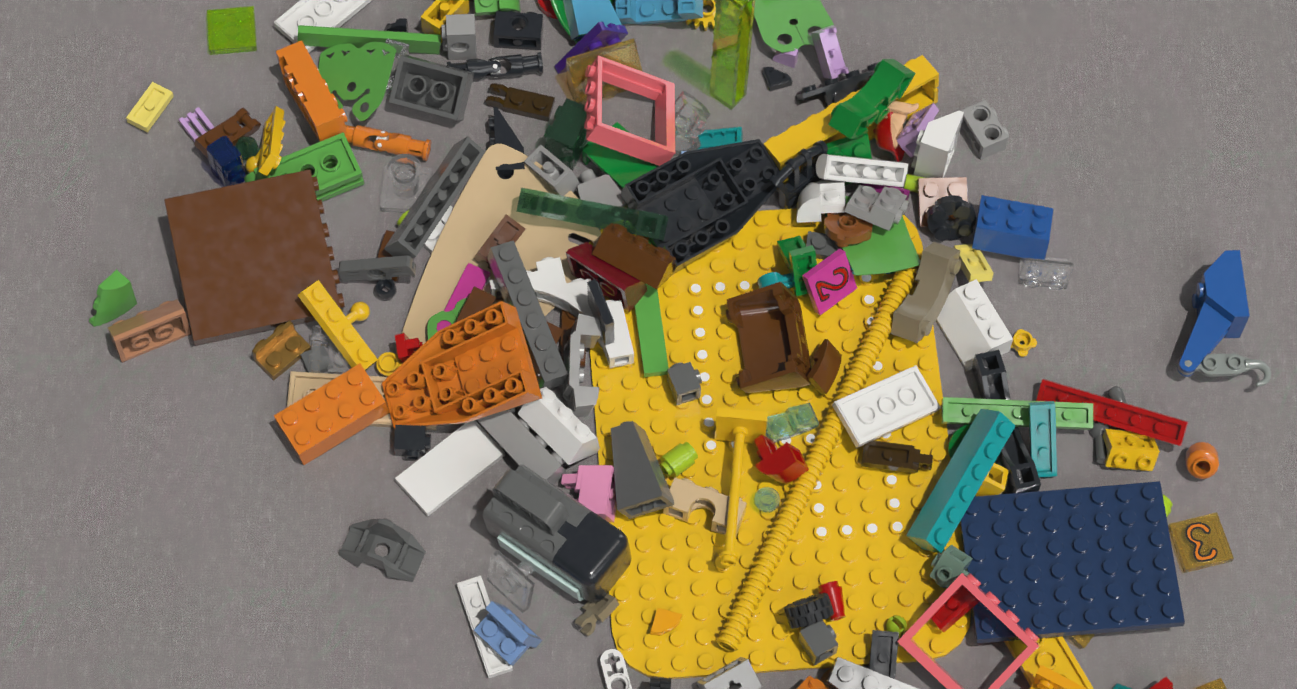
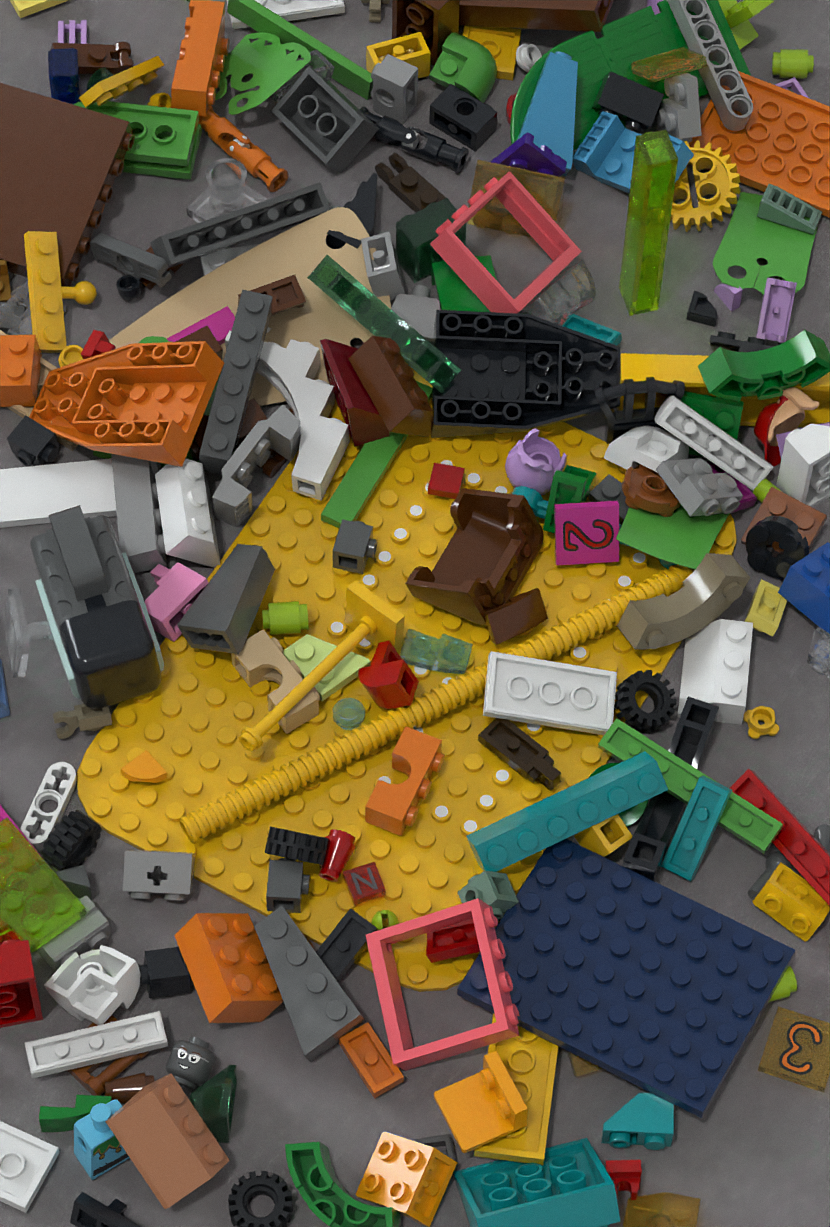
camera: 35 degrees right, 5 degrees down
(300, 140) = (160, 100): none -> yellow hinge
(400, 25) = (345, 48): black tile -> none
(601, 311) = (309, 417): black tile -> none
(706, 299) = (445, 480): none -> red tile
(718, 474) = (311, 651): none -> yellowish green wing
(761, 254) = (534, 462): none -> lavender hair
(836, 502) = (395, 805): none -> orange arch
(863, 607) = (364, 883): none -> clear red tile
(952, 366) = (657, 691): none -> black tyre
(1145, 650) = (642, 1121): none -> teal slope

